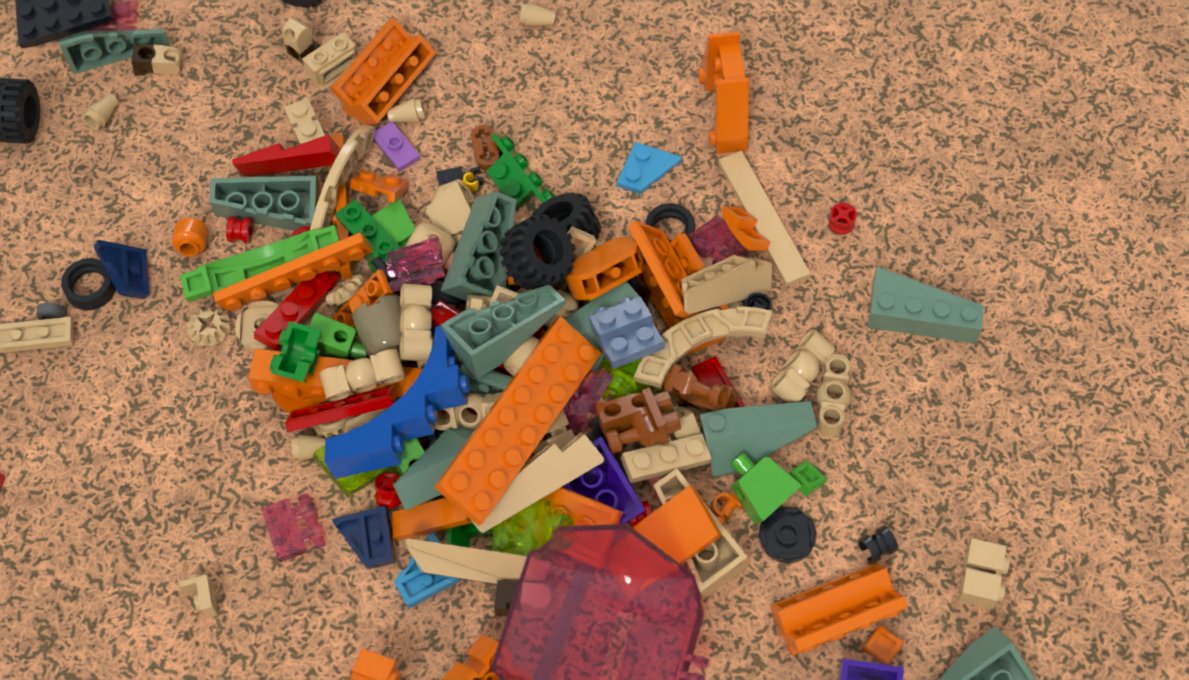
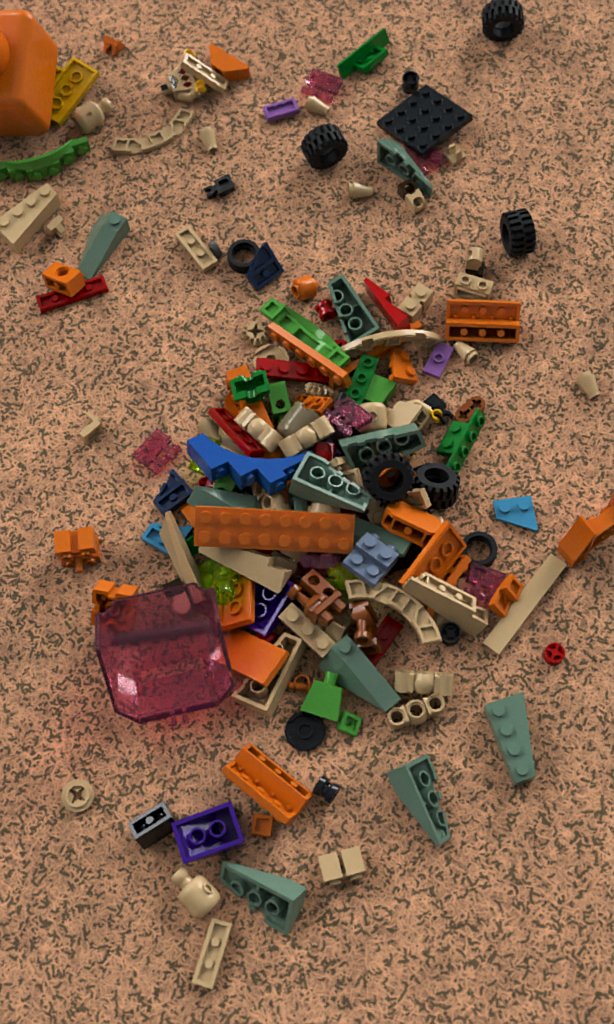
camera: 65 degrees right, 5 degrees up
(923, 445) = (416, 789): none -> sand green wedge

